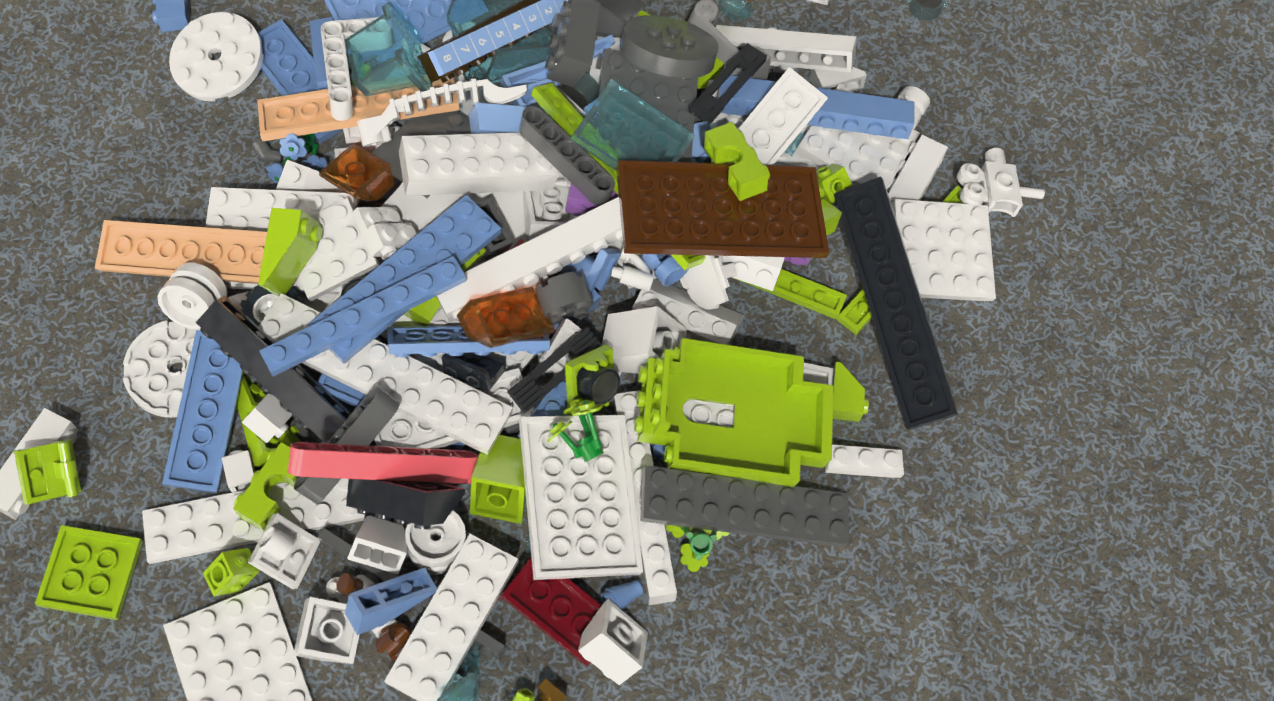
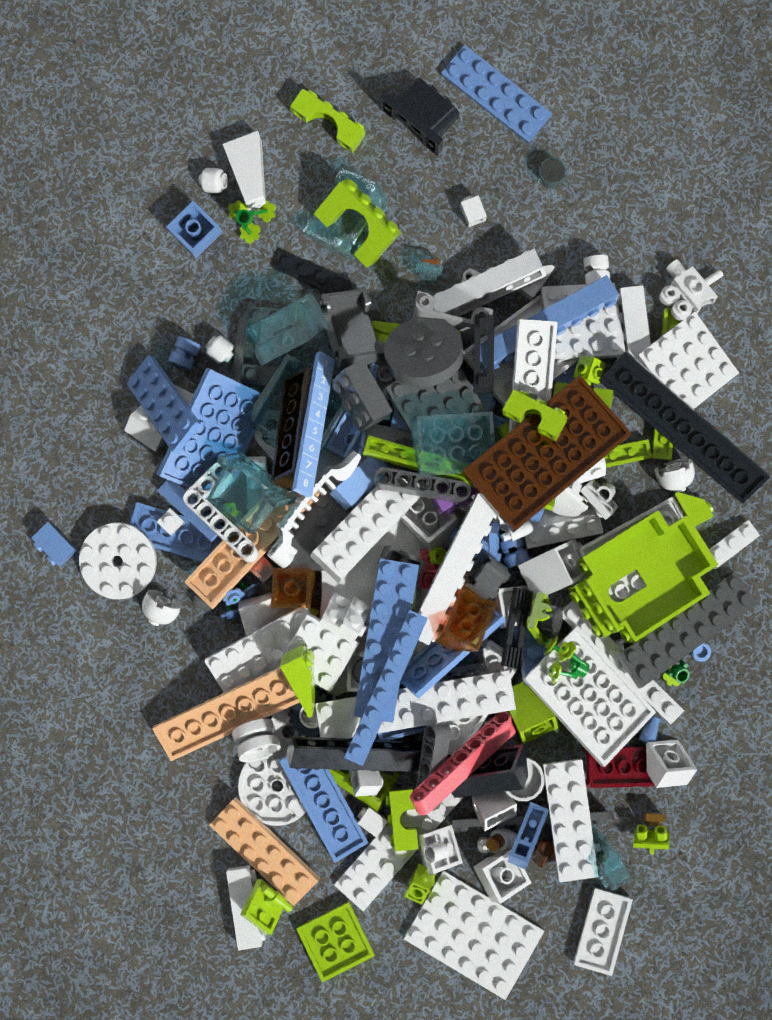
camera: 30 degrees left, 20 degrees up
(103, 423) = (264, 851): none -> light nougat plate
(215, 120) = (159, 608): none -> white cylinder
(296, 53) = (170, 522): none -> white plate
(615, 299) = (516, 557): none -> medium blue wheel
(745, 553) = (701, 653): none -> light blue tile
(747, 310) = (603, 505): none -> white plate
(851, 347) = (676, 475): none -> white cylinder

